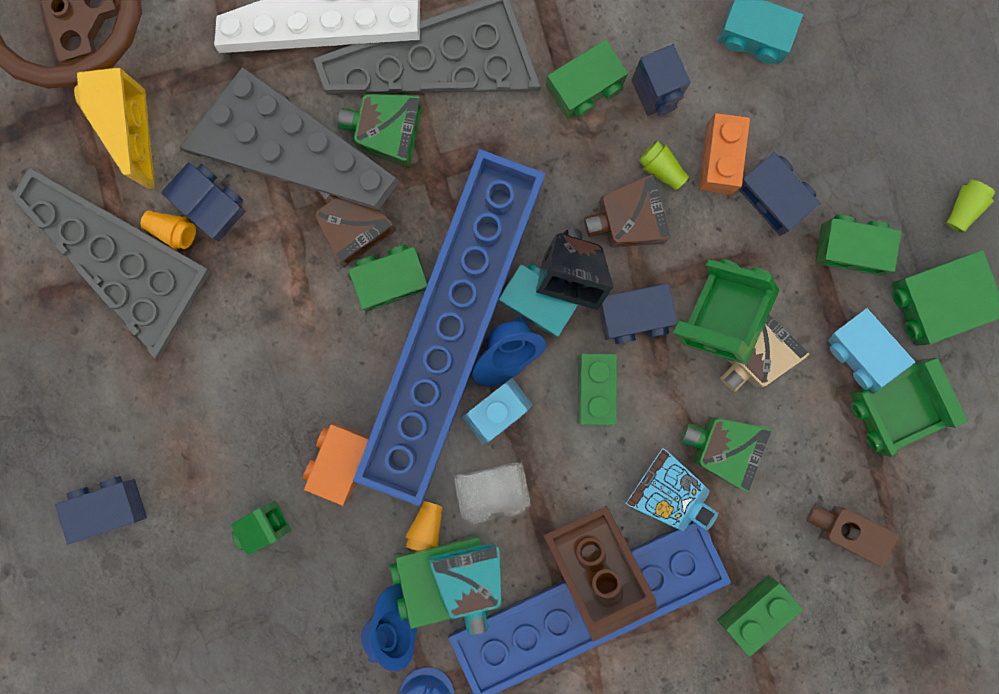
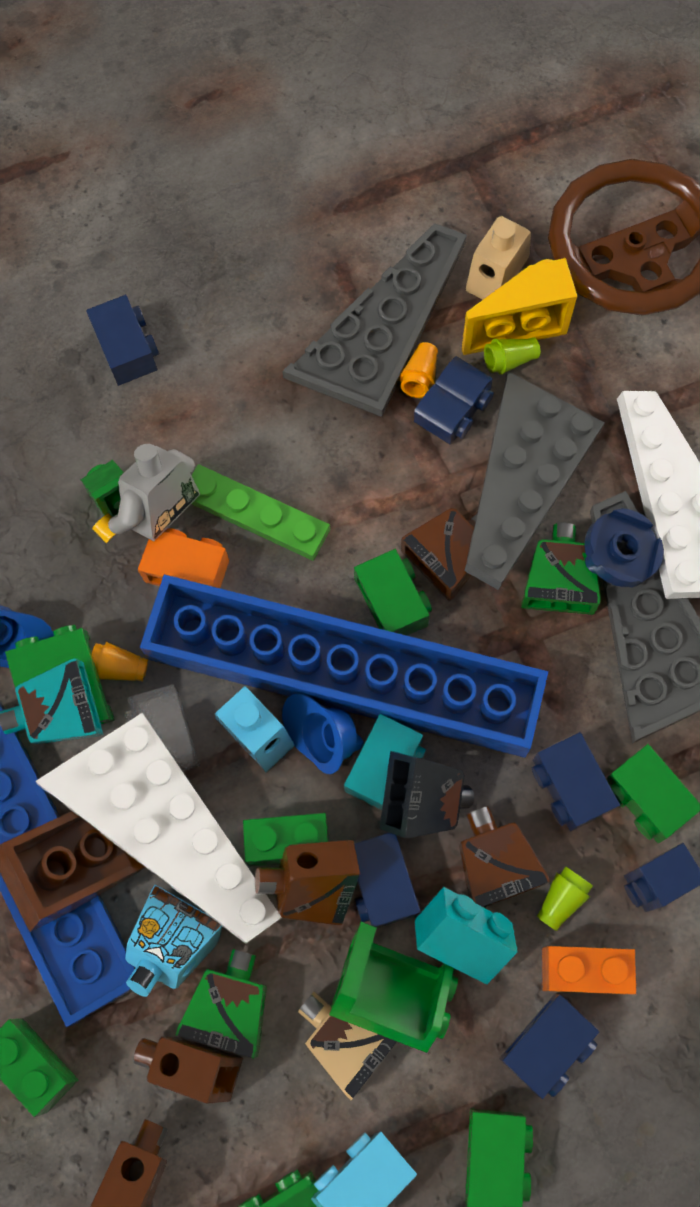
camera: 90 degrees right, 15 degrees down
(57, 138) = (502, 249): none -> tan torso
(161, 143) = (507, 354): none -> lime cone
(273, 488) = (151, 493): none -> light grey torso
(292, 396) = (259, 513): none -> bright green plate
(375, 85) = (606, 559): none -> dark blue plate
(563, 505) = (151, 811): none -> white wing
(571, 143) = (574, 782): none -> dark blue brick
(638, 369) = (312, 881): none -> reddish brown torso
(691, 248) = (465, 935): none -> teal brick
(775, 484) = (189, 1068): none -> reddish brown torso

